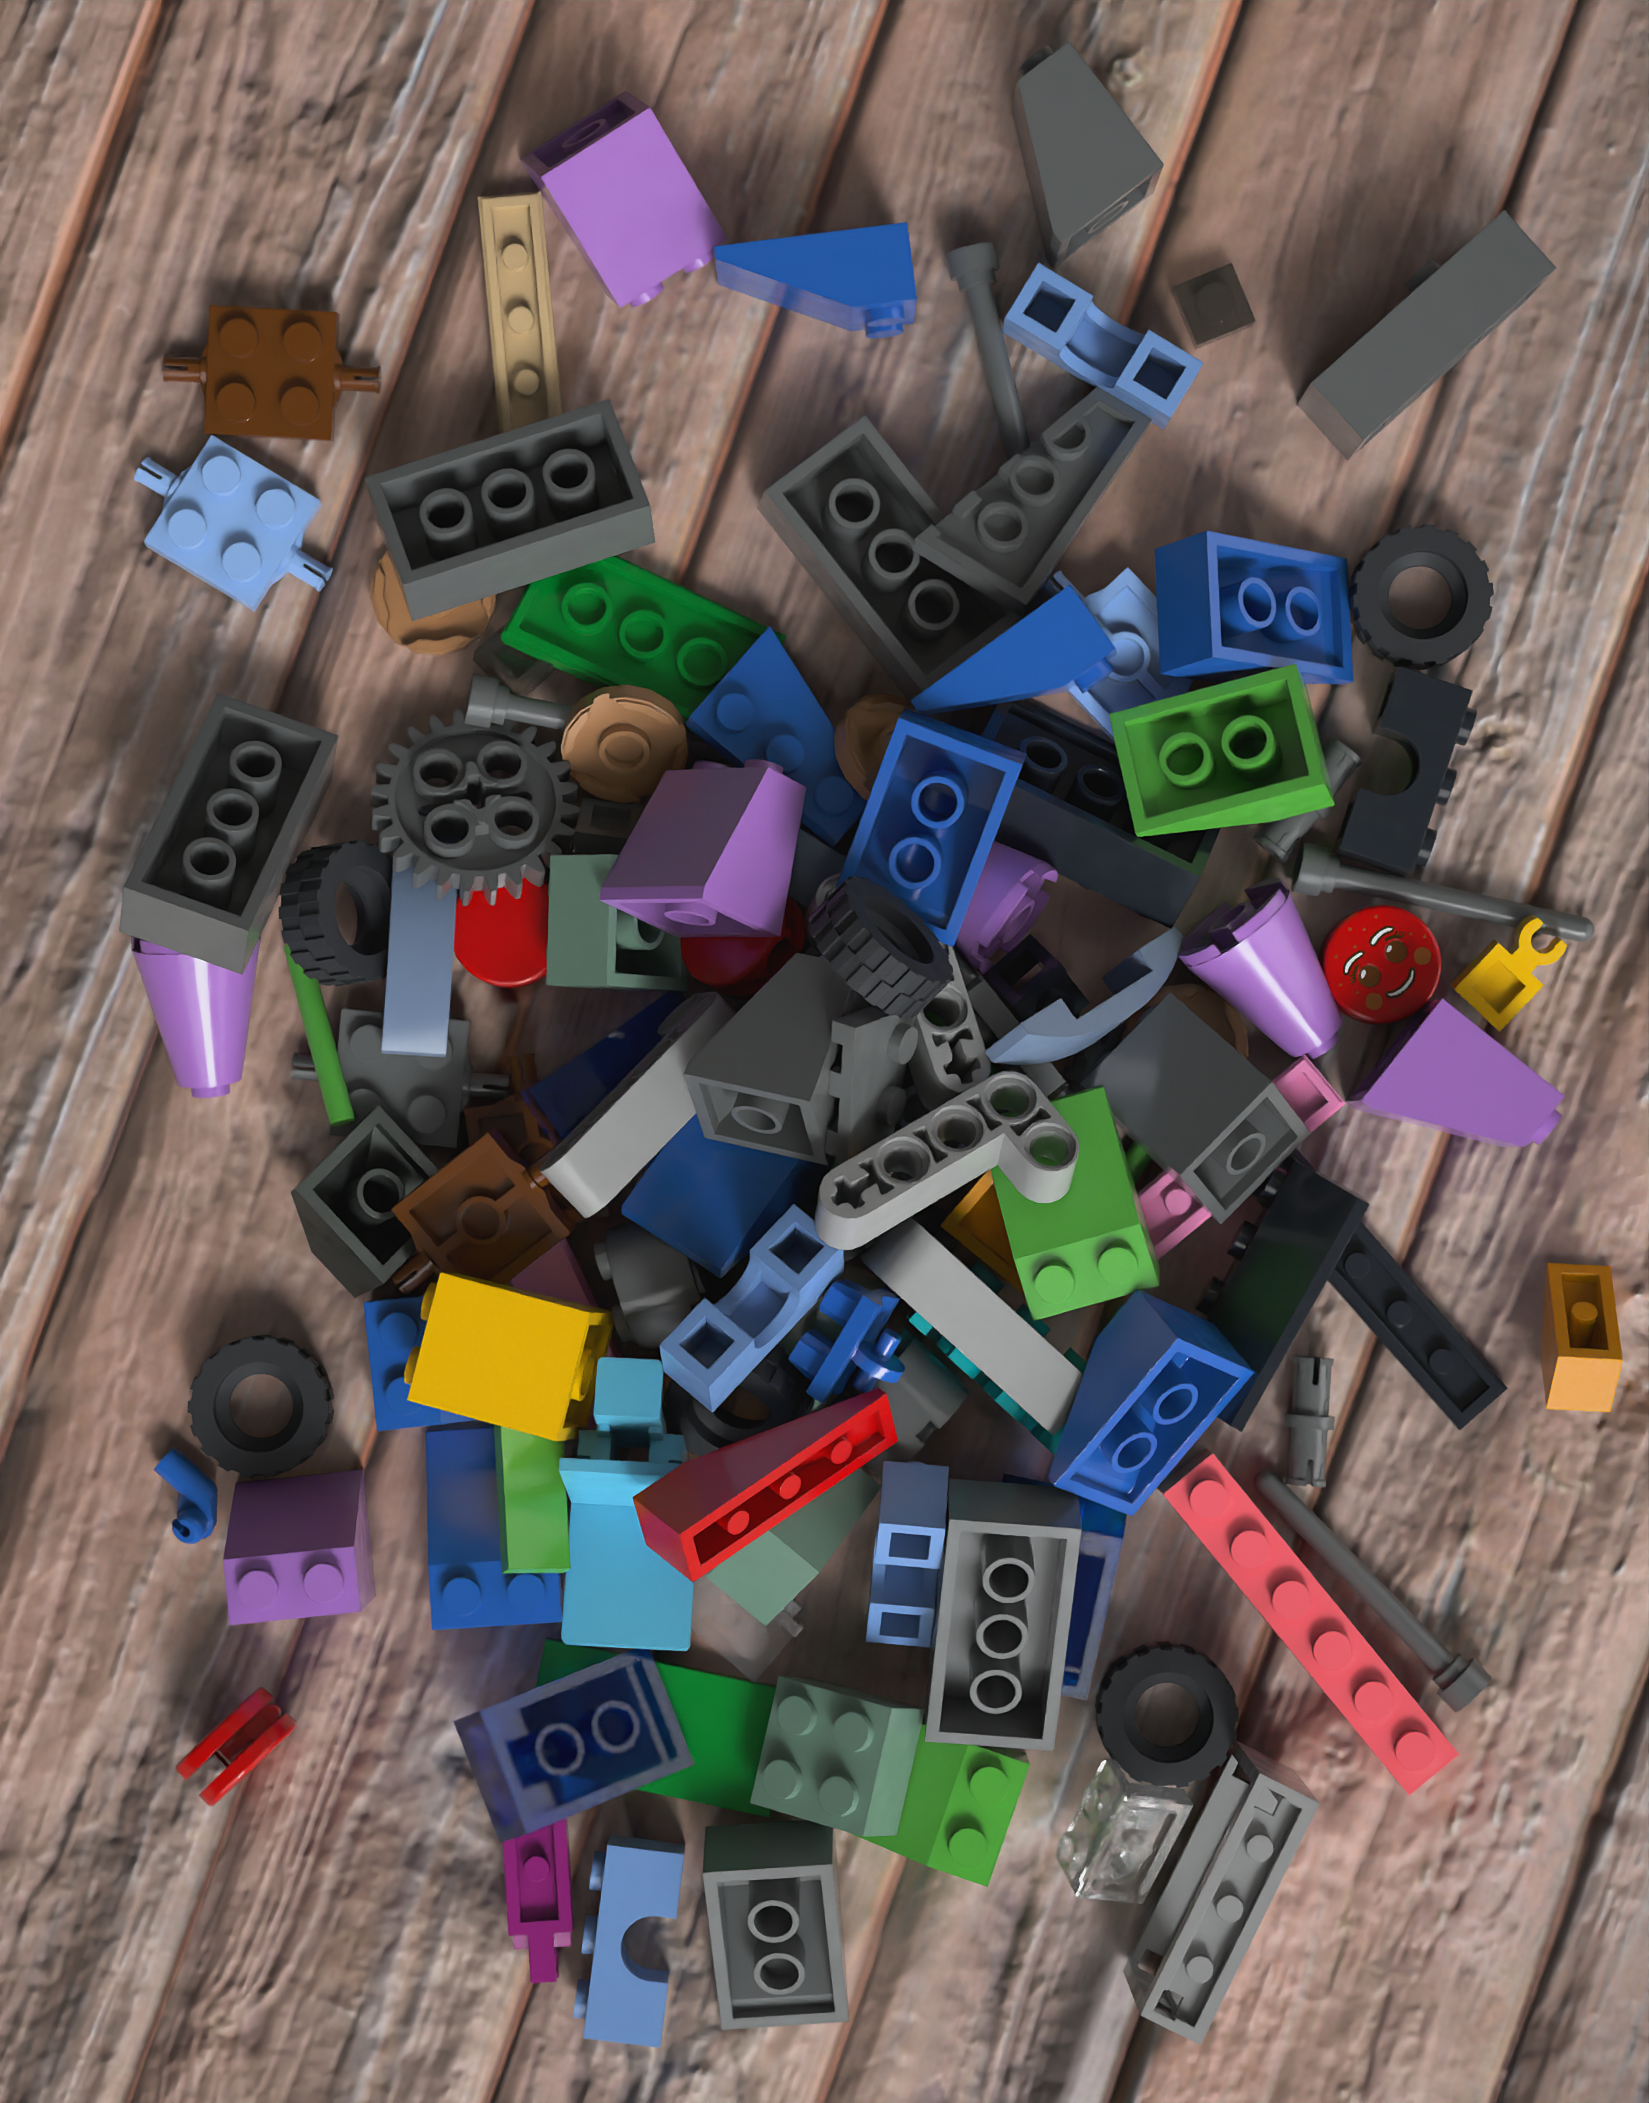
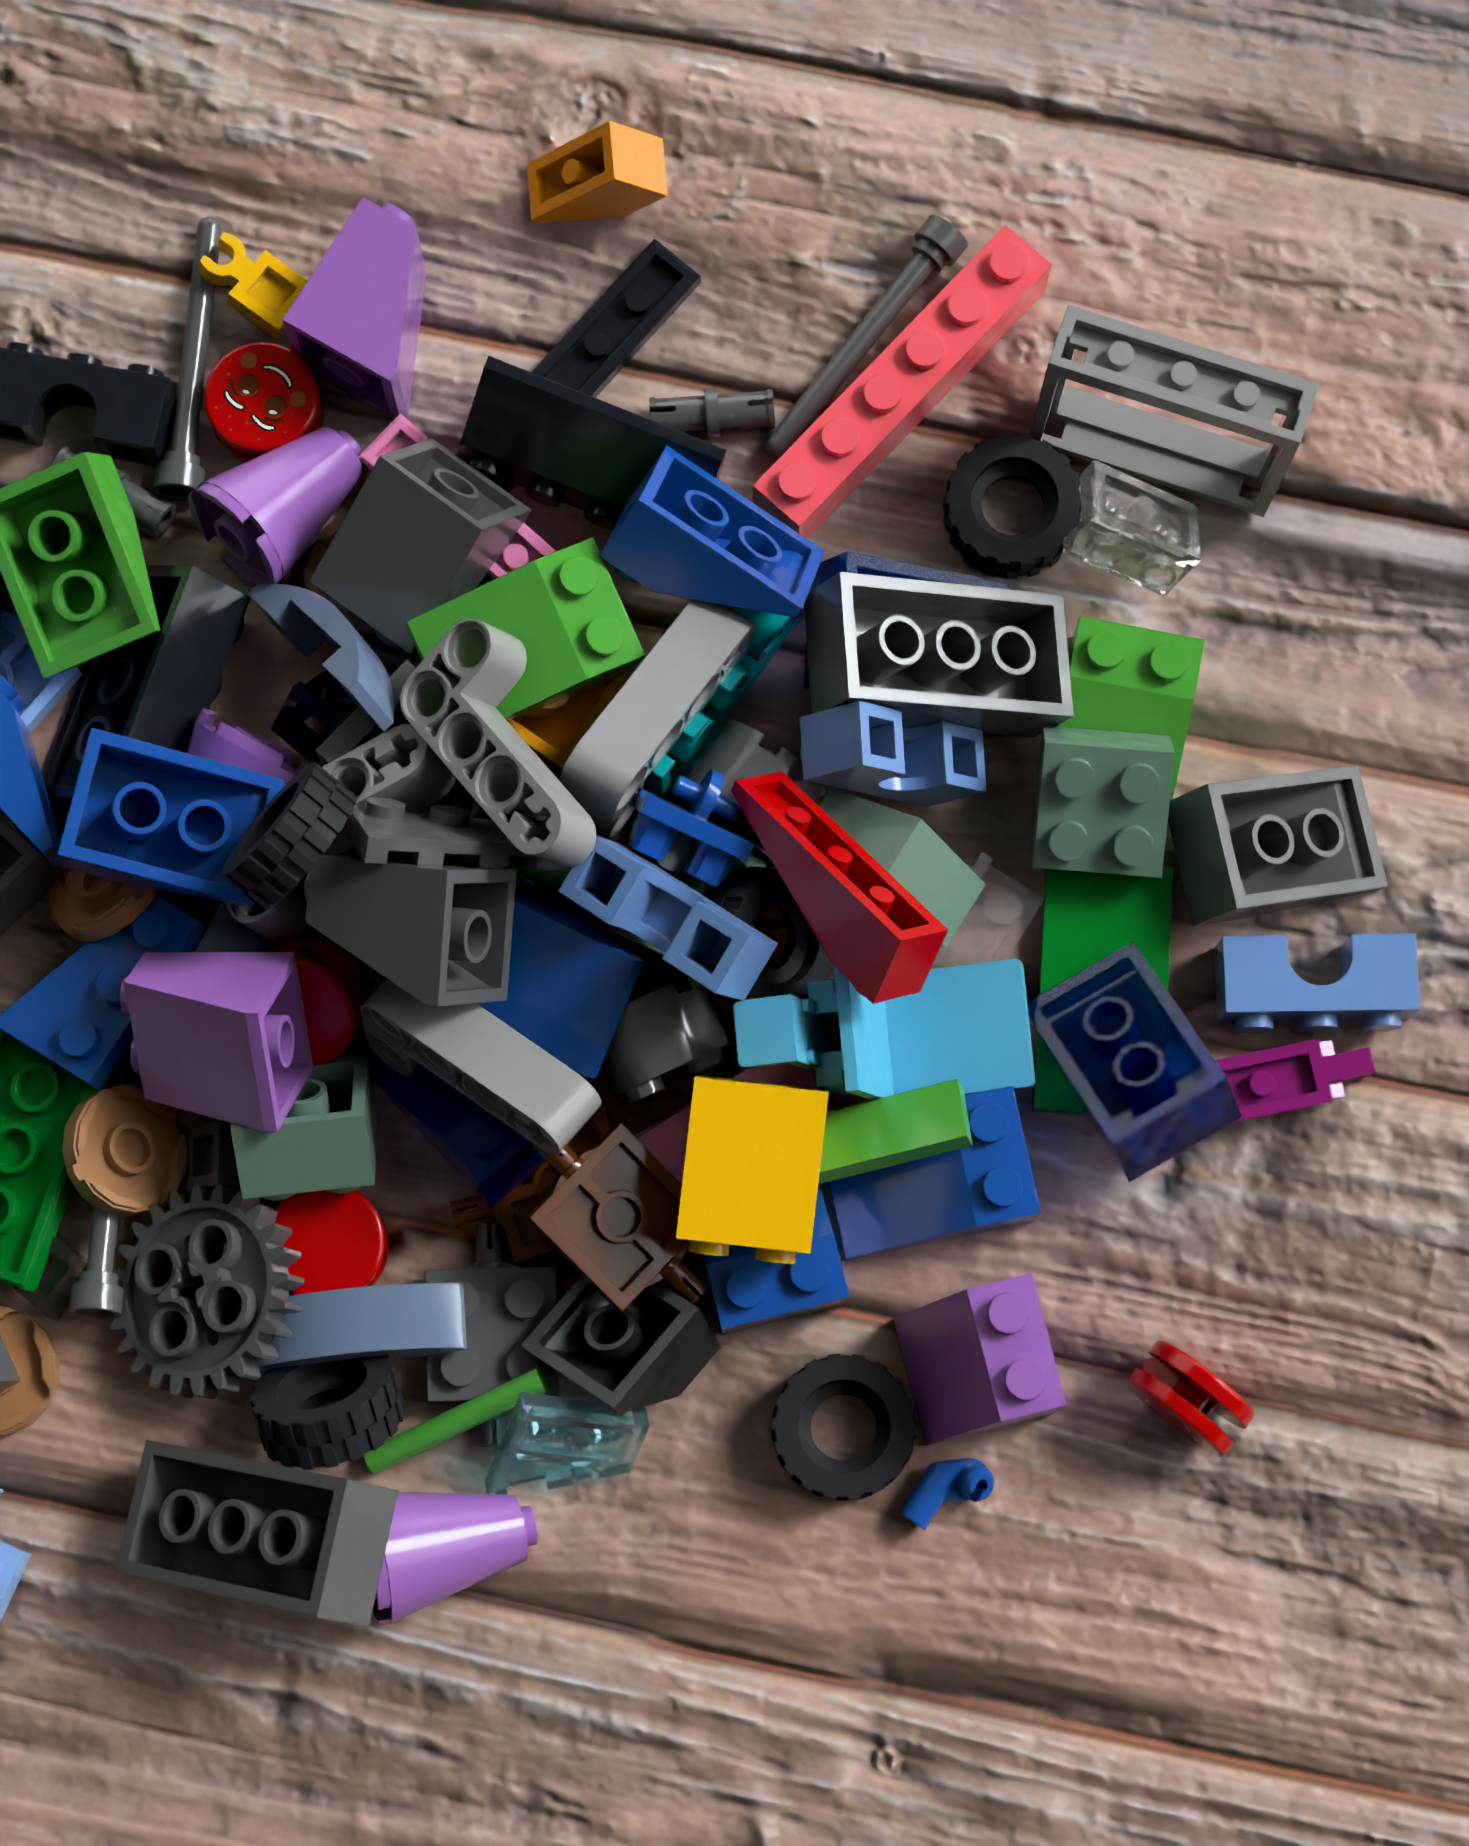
camera: 90 degrees left, 10 degrees down
(282, 1133) = (564, 1442): none -> clear light blue wing

